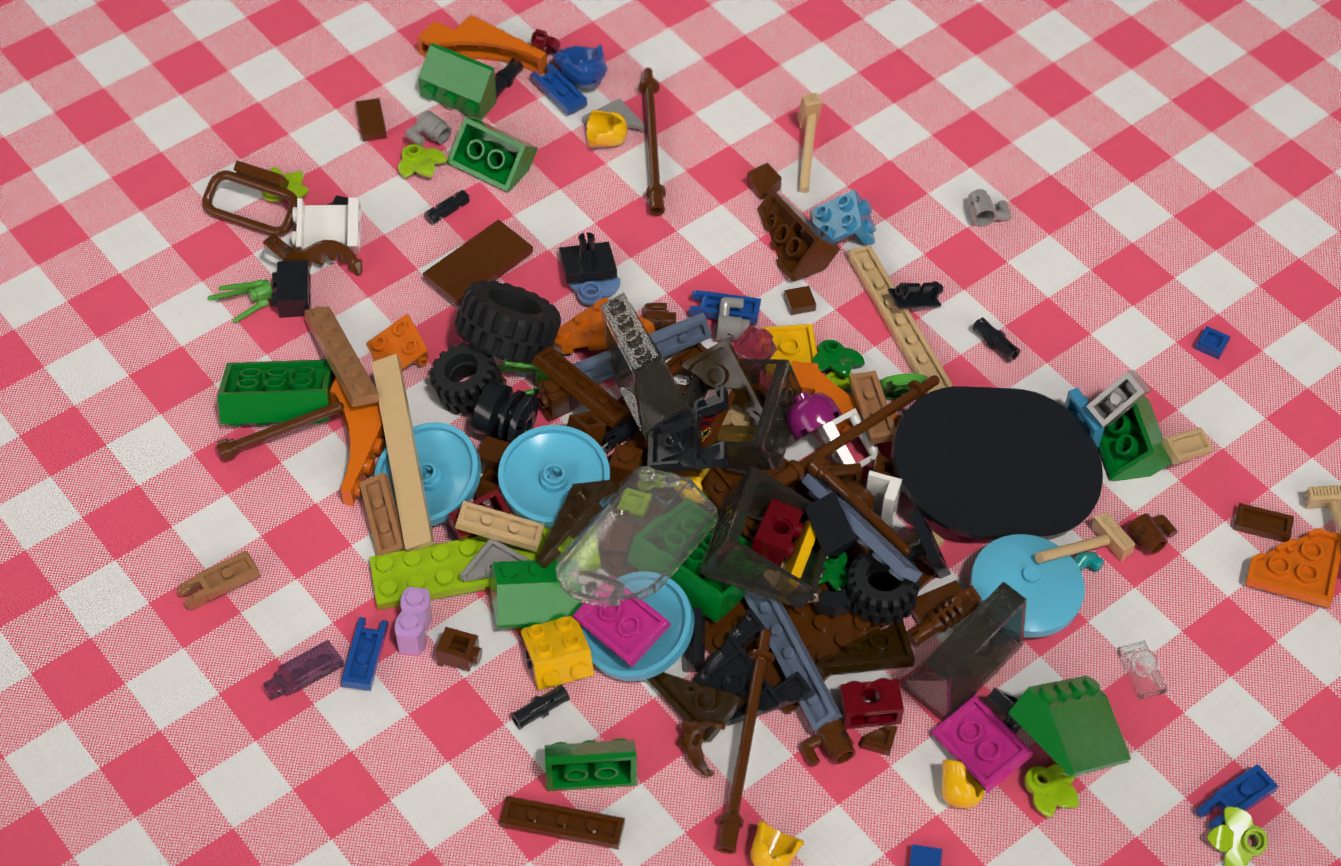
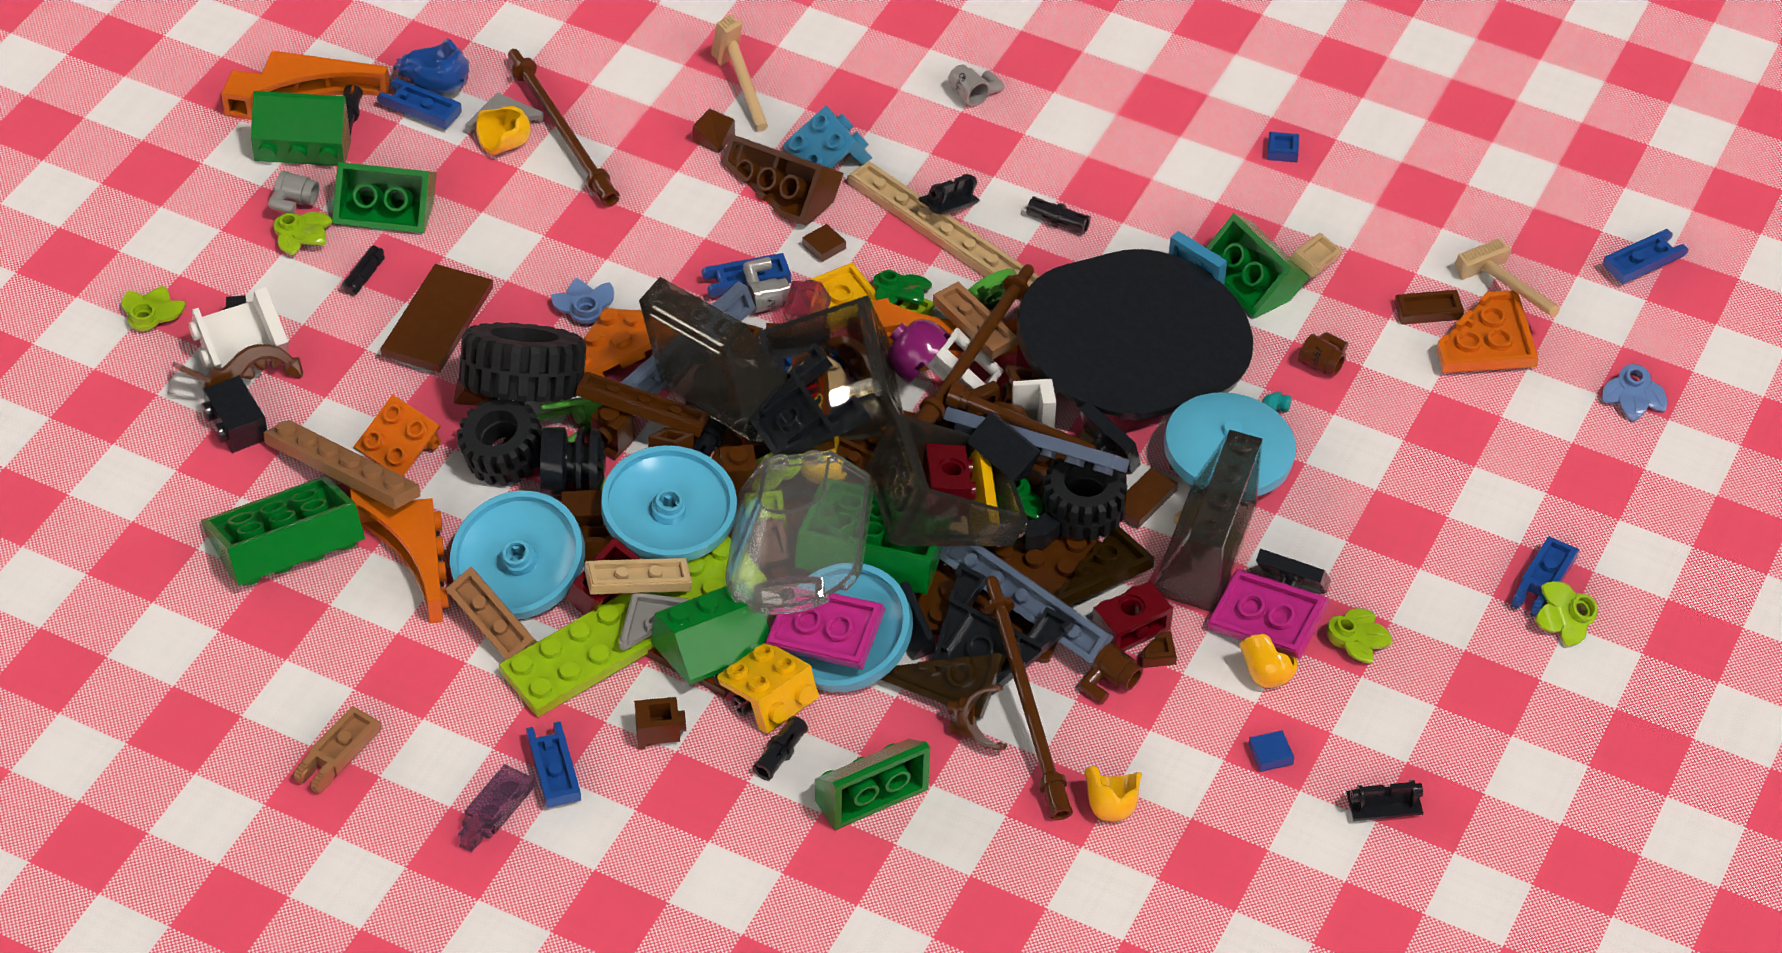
camera: 25 degrees left, 5 degrees down
(231, 447) = (263, 607): reddish brown piece -> none
(257, 179) = (125, 306): reddish brown bar -> none
(258, 291) = (192, 431): bright green plant -> none
(371, 119) = (213, 204): reddish brown tile -> none
(403, 454) = (479, 540): tan tile -> none
(413, 621) = (590, 710): lavender brick -> none
(544, 42) = (374, 54): dark red plate -> none
(562, 822) = (871, 853): reddish brown tile -> none
(578, 509) = (722, 530): dark brown wing -> none
(587, 260) = (564, 275): black tile -> none
(722, 367) = (794, 330): dark brown wing -> none
(947, 614) = (1164, 502): reddish brown hinge -> none
(1072, 724) = (1354, 555): green slope -> none
(1108, 535) = (1280, 370): tan piece -> none
(1118, 398) = (1230, 224): light grey brick -> none
(1142, 669) = (1386, 488): clear tile -> none

